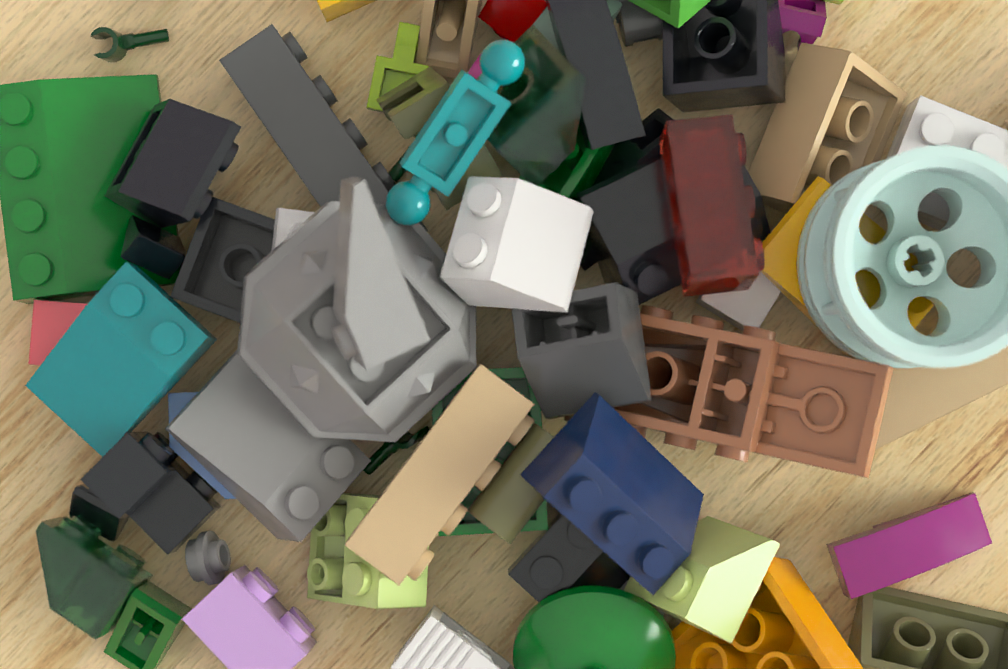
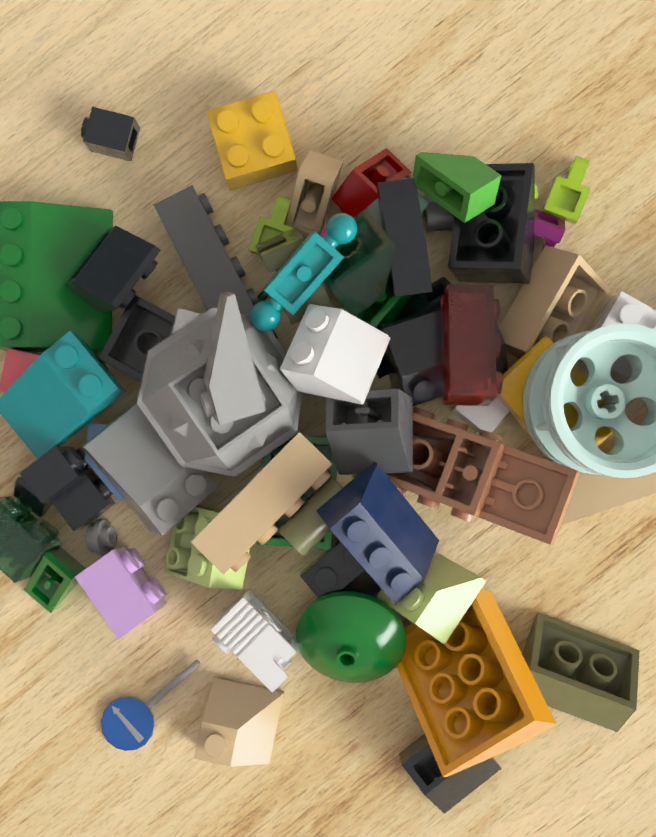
camera: 15 degrees right, 0 degrees up
(125, 42) = (94, 185): dark green hand -> none
(152, 248) = (91, 324): black slope -> none
(389, 448) = (242, 477): dark green hand -> none
(909, 545) = (572, 593): magenta slope -> none

